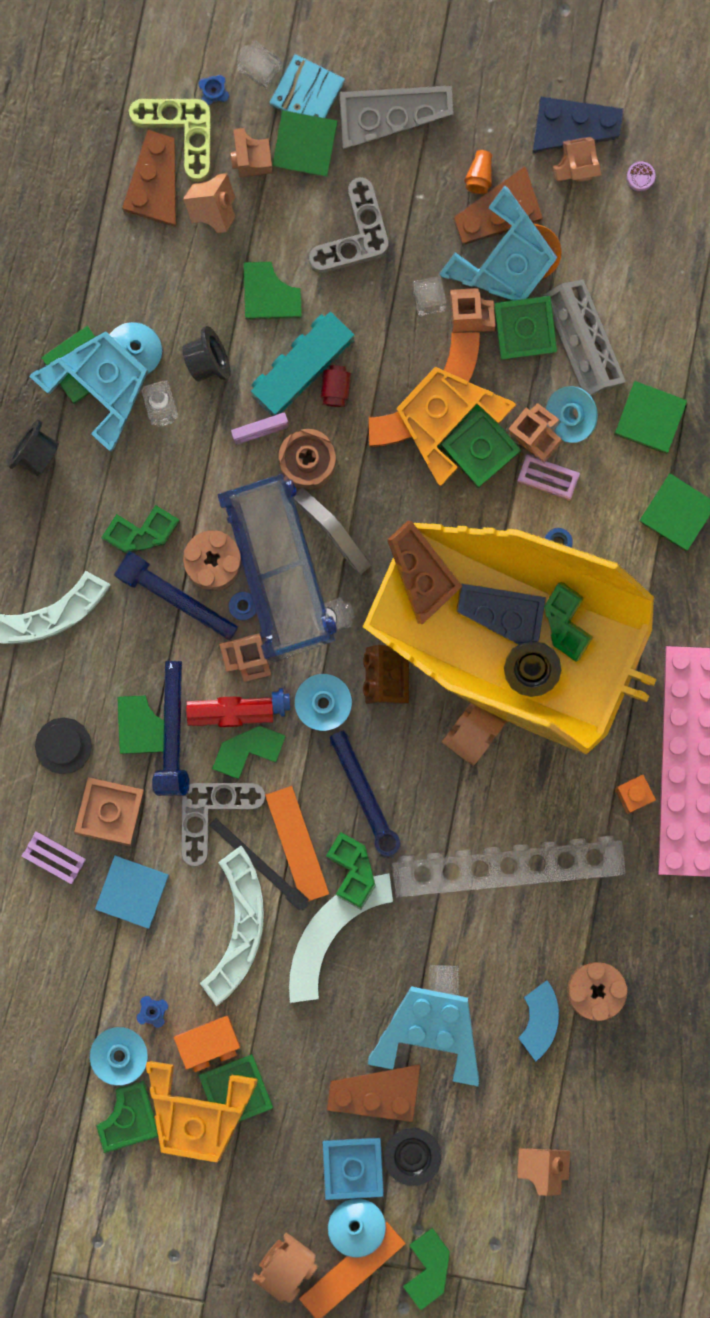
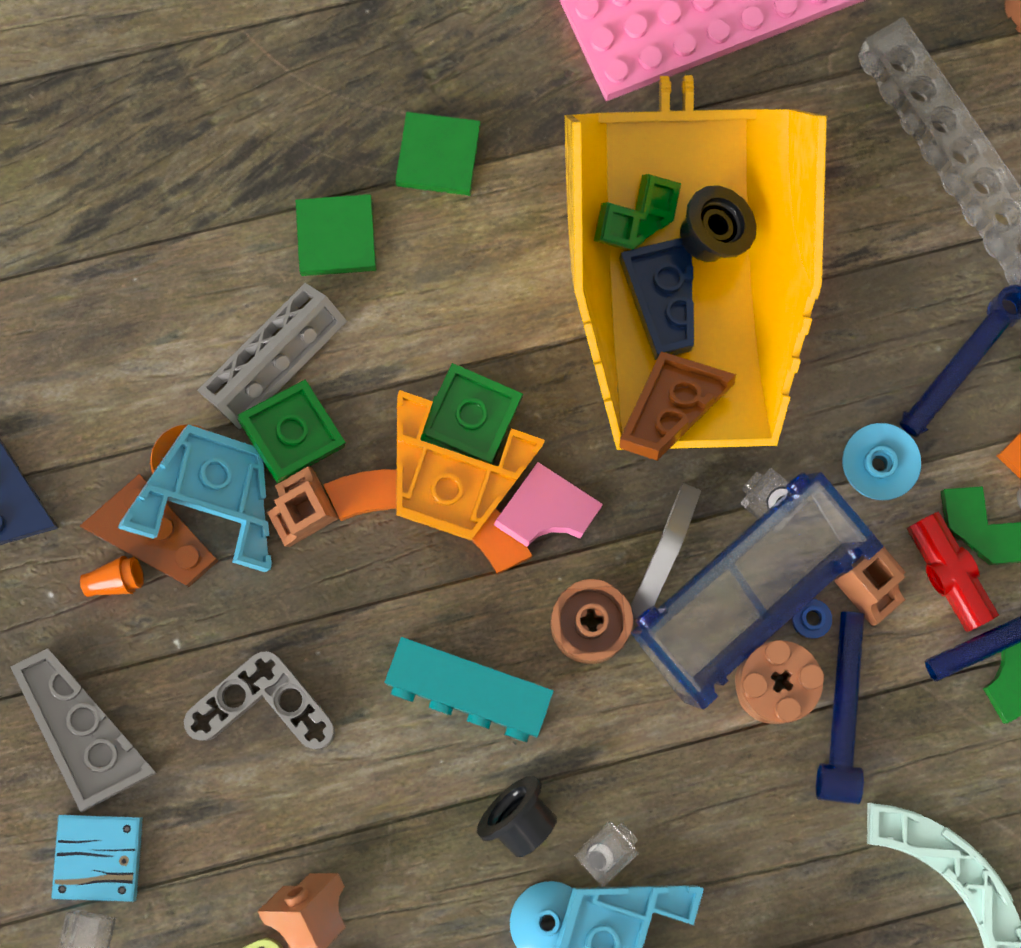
camera: 115 degrees left, 5 degrees down
(152, 534) = (797, 807): green tile -> none
(251, 155) = (217, 892): nougat brick -> none
(260, 428) = (578, 704): lavender tile -> none
(267, 295) = (395, 780): green tile -> none
(280, 702) = (908, 513): blue plate -> none
(304, 143) = (169, 826): green tile -> none
(335, 386) = (477, 632): dark red brick -> none
(385, 676) = (816, 401): reddish brown bracket -> none
(397, 469) = (545, 506): none -> bright pink tile
(429, 296) = (304, 567): clear brick -> none
(473, 733) = (843, 260): nougat brick -> none
(535, 432) = (420, 355): nougat brick -> none
(546, 488) = (470, 353): lavender tile -> none
(560, 533) = (546, 264): blue plate -> none
(563, 403) = (392, 327): medium azure dish -> none
(578, 161) = (45, 459): nougat brick -> none
(635, 794) = (800, 51): orange brick -> none
(640, 176) = (33, 378): lavender tile -> none

